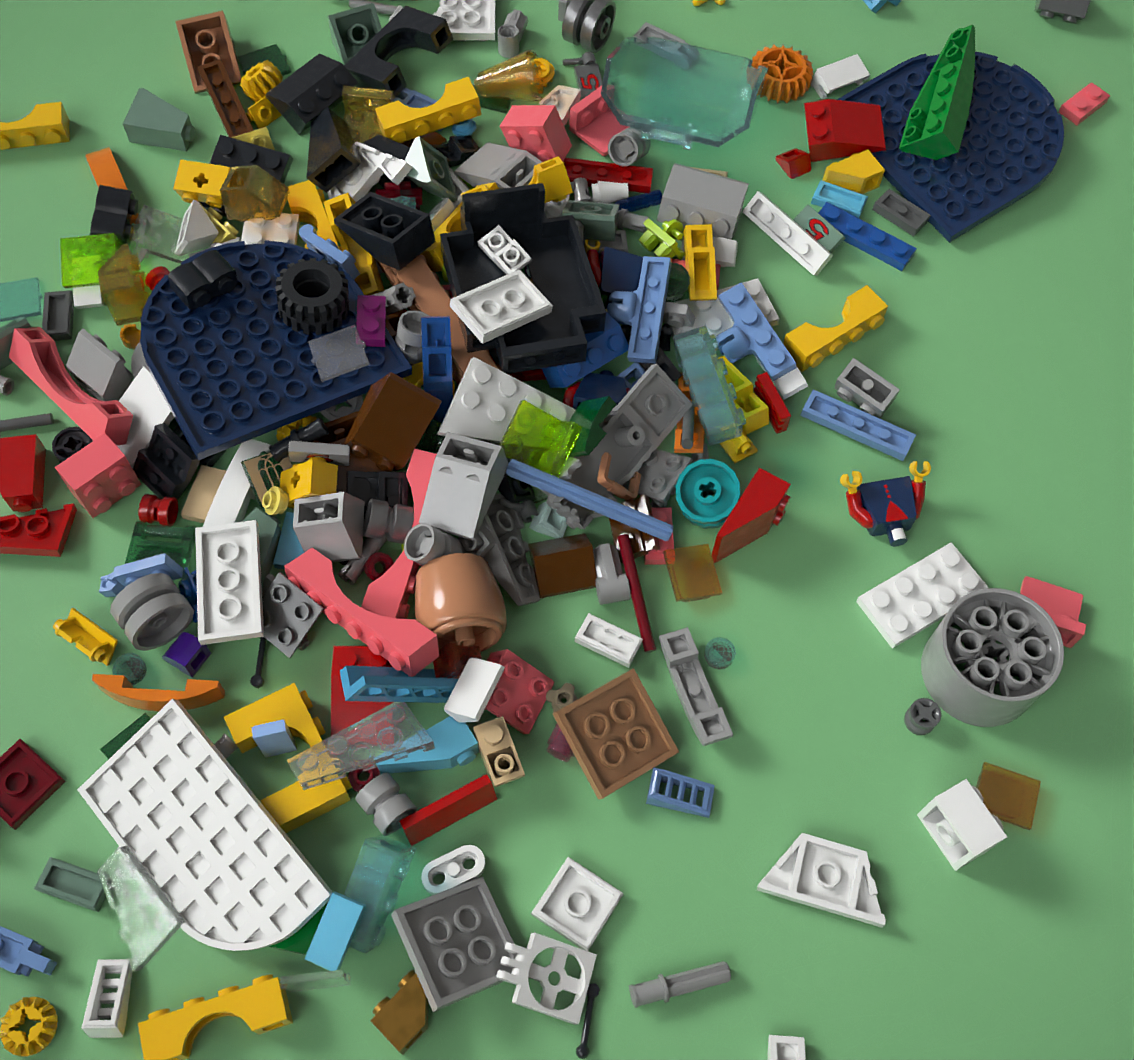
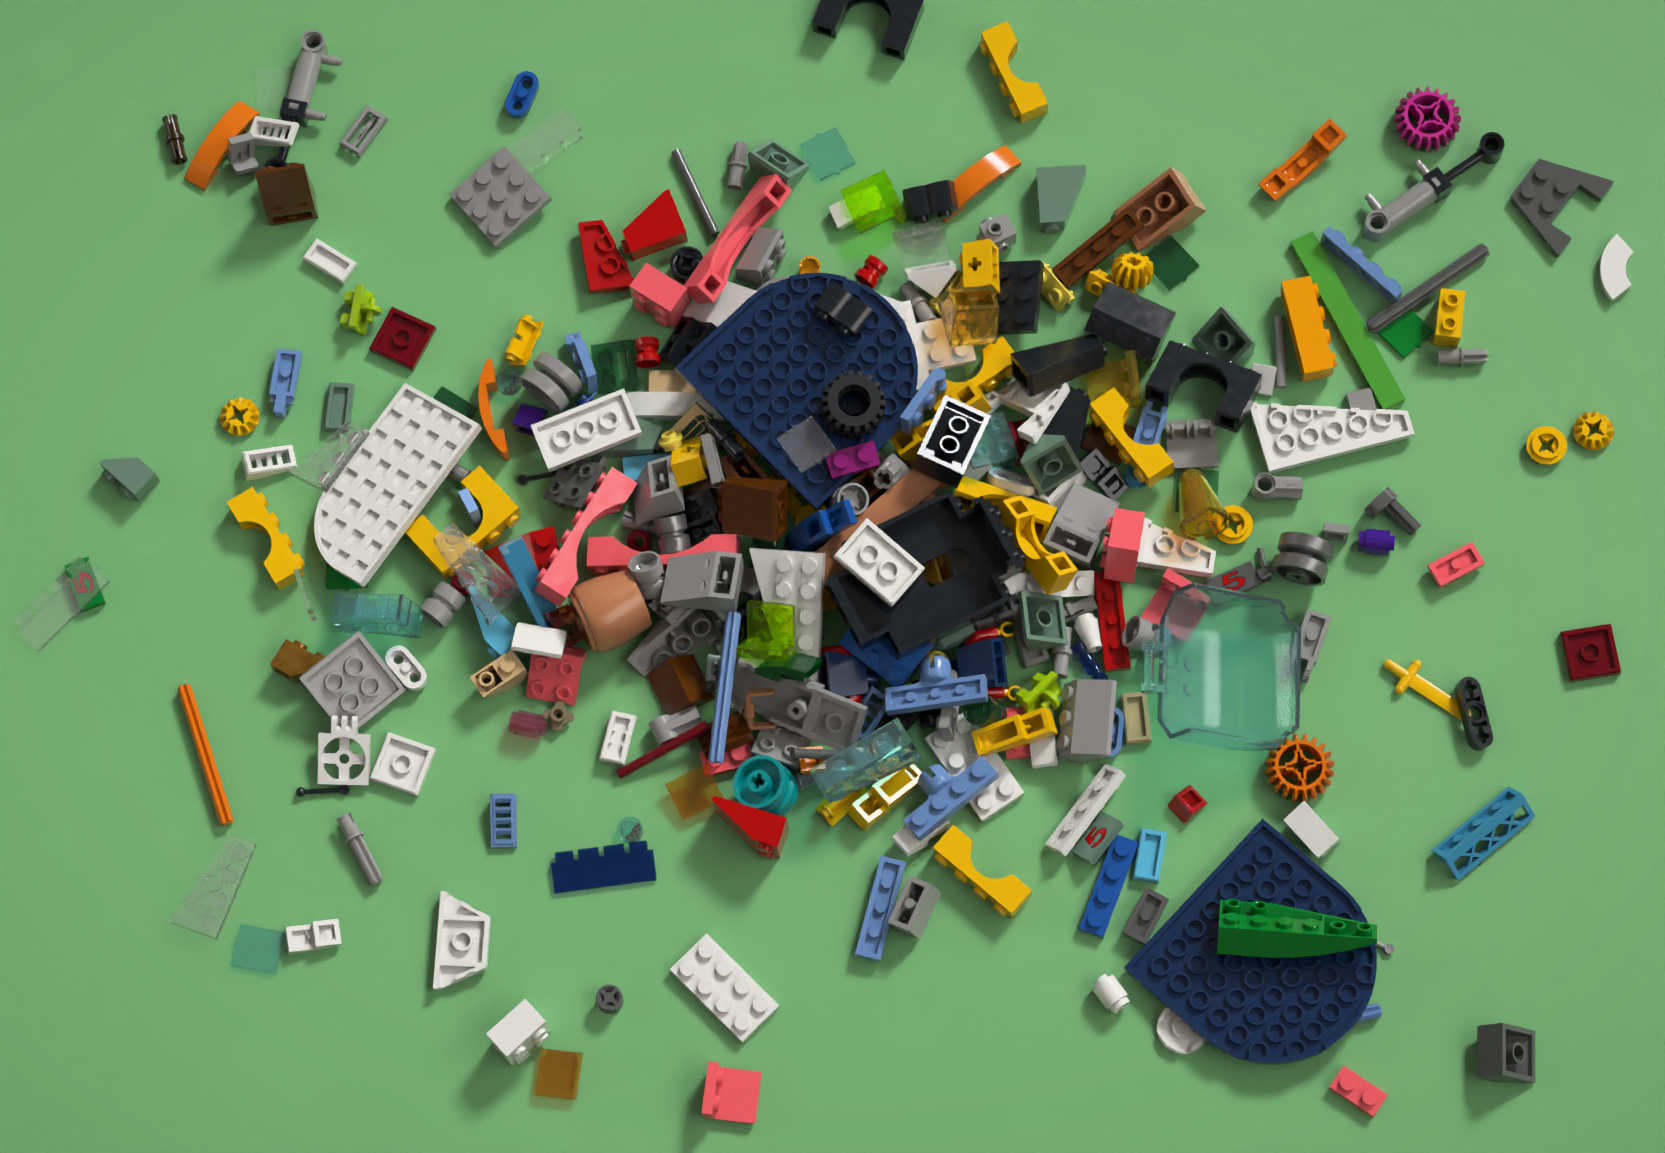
camera: 85 degrees right, 10 degrees up
(58, 314) = (818, 196): dark grey tile -> none
(123, 286) = (851, 242): clear yellow slope -> none
(168, 167) = (999, 231): none -> light grey brick
(335, 932) = (338, 596): medium azure tile -> none
(439, 74) = (1192, 443): none -> light grey hinge
(448, 809) = (448, 650): red tile -> none
(504, 251) = (951, 552): white slope -> none
(615, 733) = (534, 758): medium nougat plate -> none
(693, 688) = (592, 814): light grey slope -> none
(762, 697) = (599, 871): none -> clear blue windscreen
(778, 412) = (882, 828): red tile -> none
(843, 128) = (1228, 839): red slope -> none
(856, 173) = (1181, 864): yellow slope -> none
(887, 504) = (799, 943): torso -> none
(975, 252) = (1111, 993): none -> white brick
(1017, 217) = (1177, 1037): none -> white tile
(1026, 637) = (671, 1078): light grey wheel -> none

